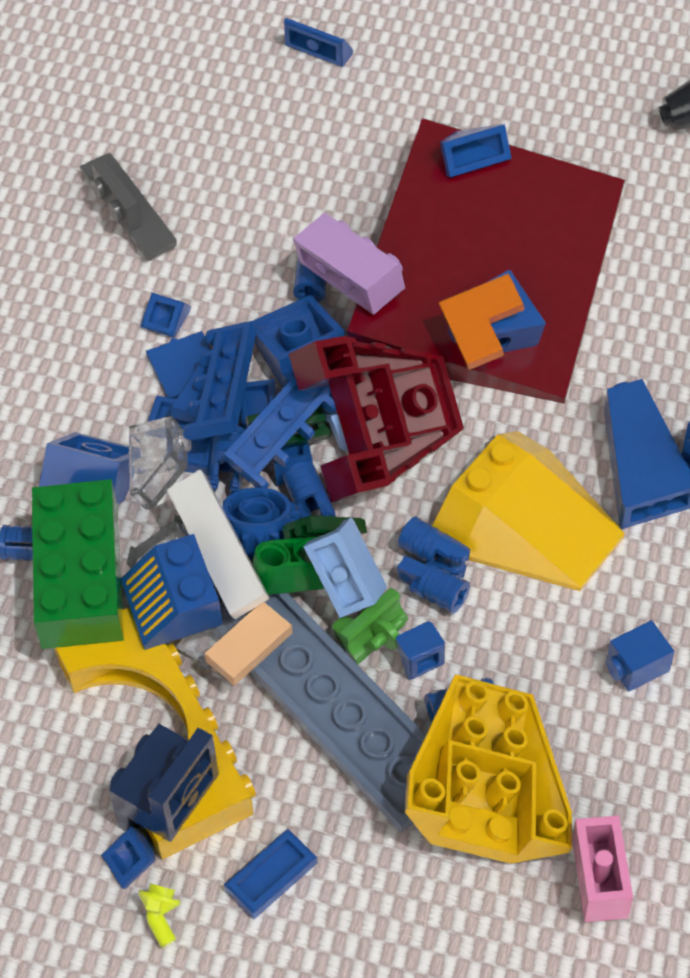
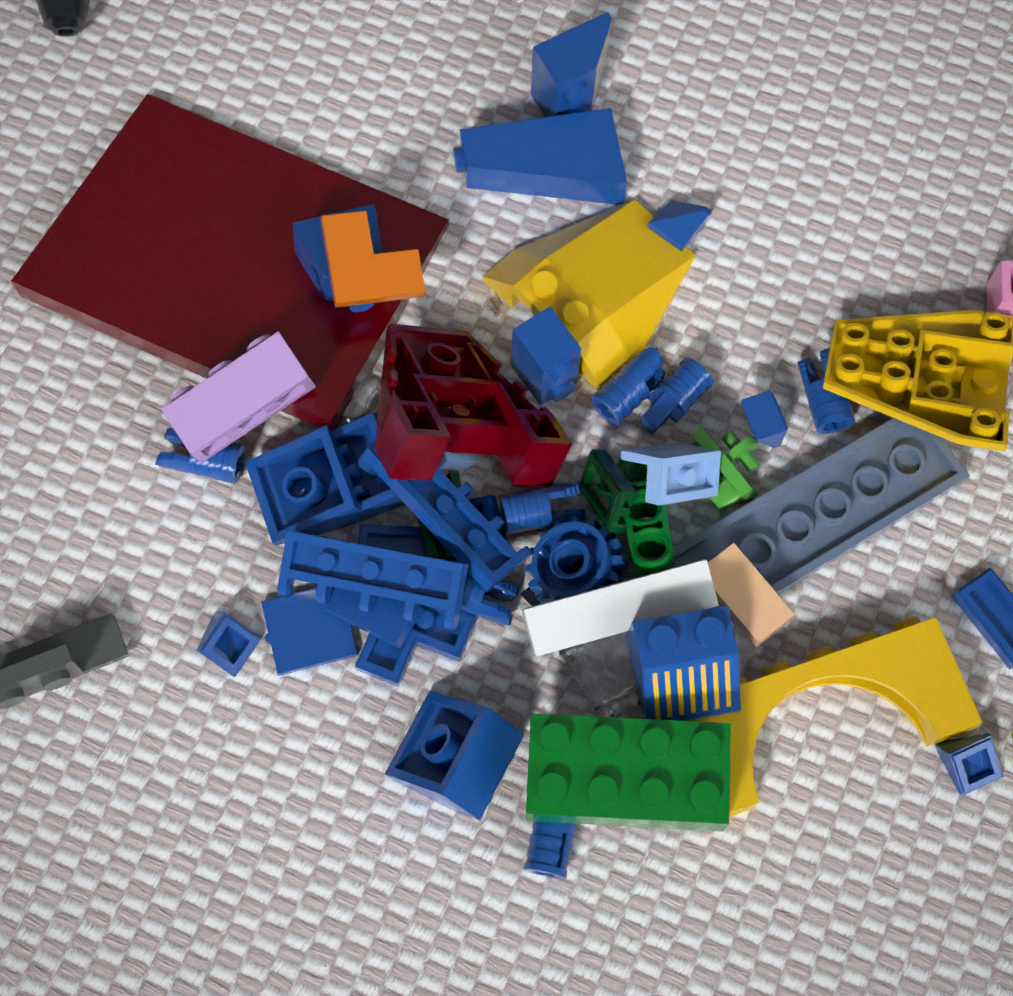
camera: 85 degrees left, 15 degrees up
(156, 459) = (462, 671): clear slope -> none
(164, 781) = (930, 701): dark blue bracket -> none
(436, 466) = (545, 357): none -> blue brick
(475, 149) = (78, 230): blue slope -> none
(605, 567) = (680, 222): none -> blue slope
(639, 656) = (795, 214): blue brick -> none

